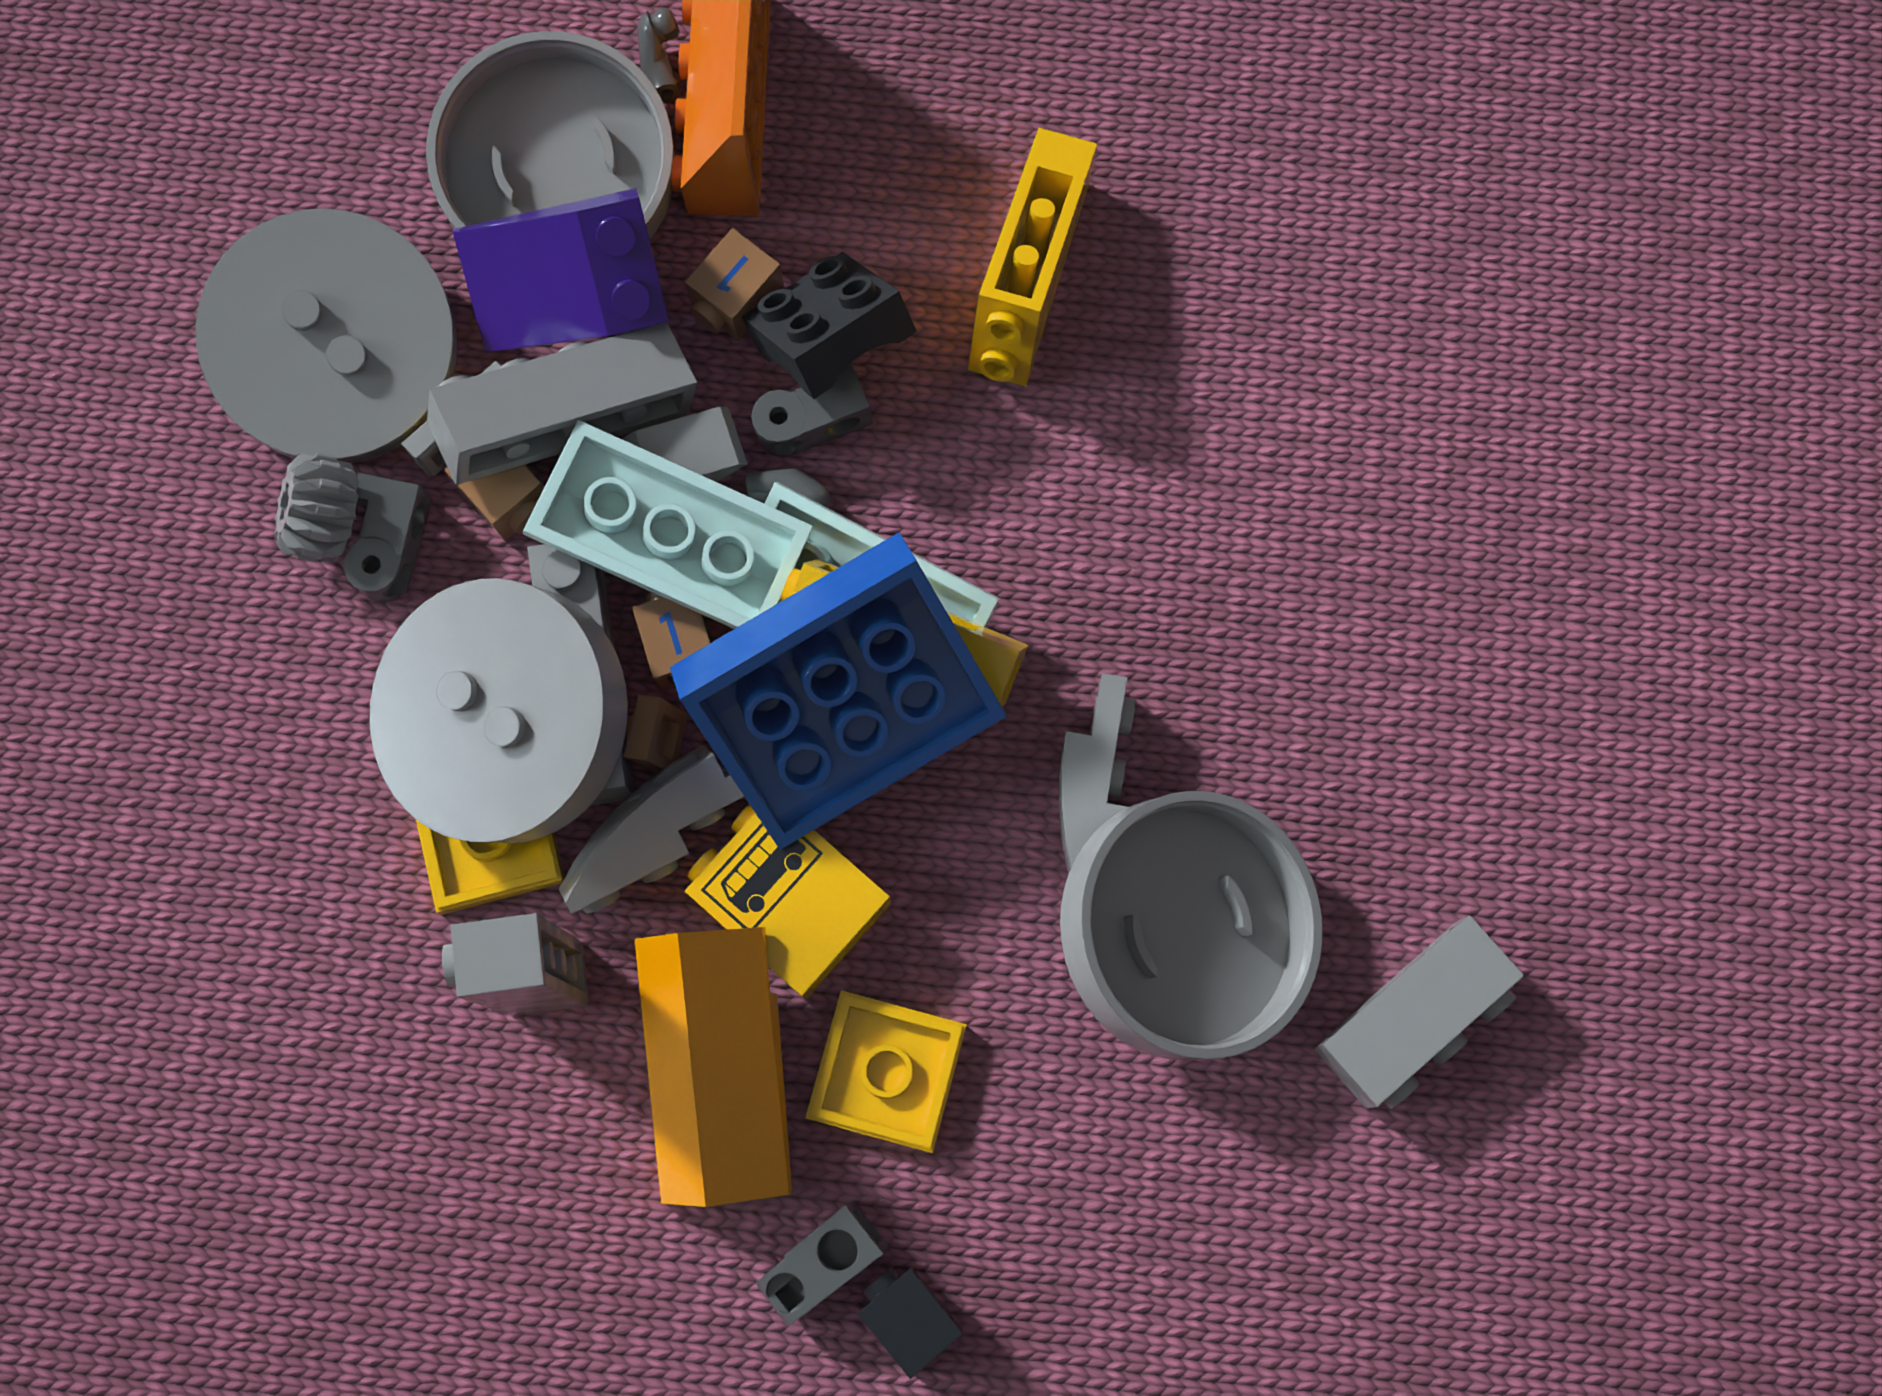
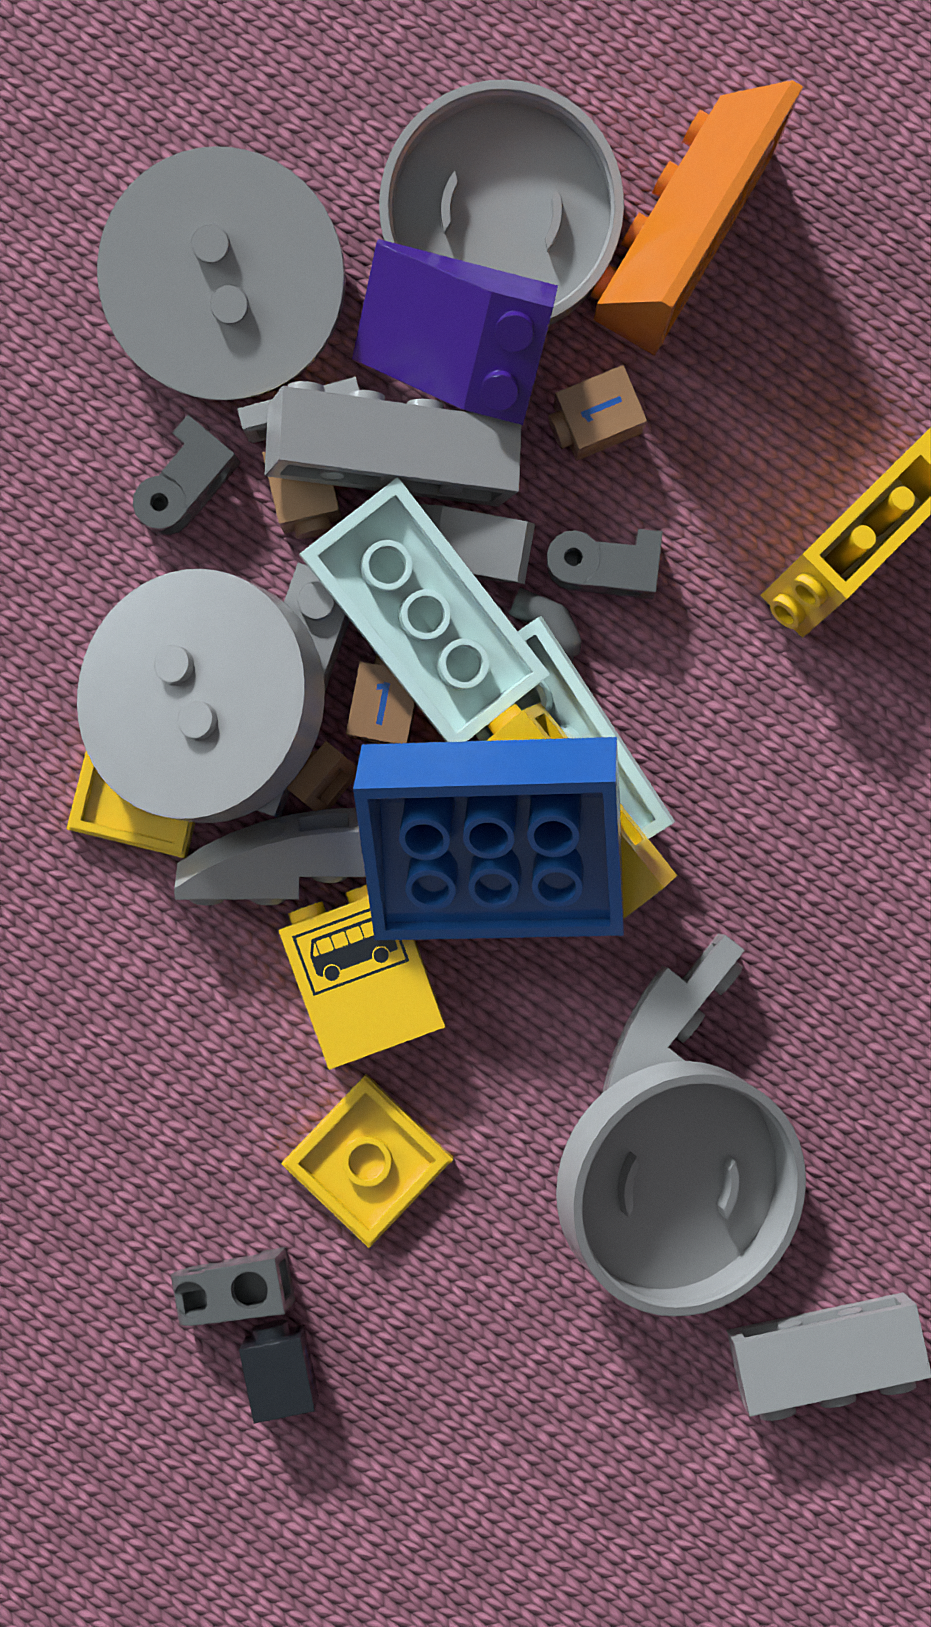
camera: 25 degrees right, 10 degrees up
(316, 507) = (137, 426): light grey gear -> none
(516, 965) = (103, 934): light grey brick -> none
(654, 60) = (638, 161): dark grey arm -> none
(714, 1067) = (227, 1086): light orange slope -> none
(827, 321) = (660, 497): black brick -> none

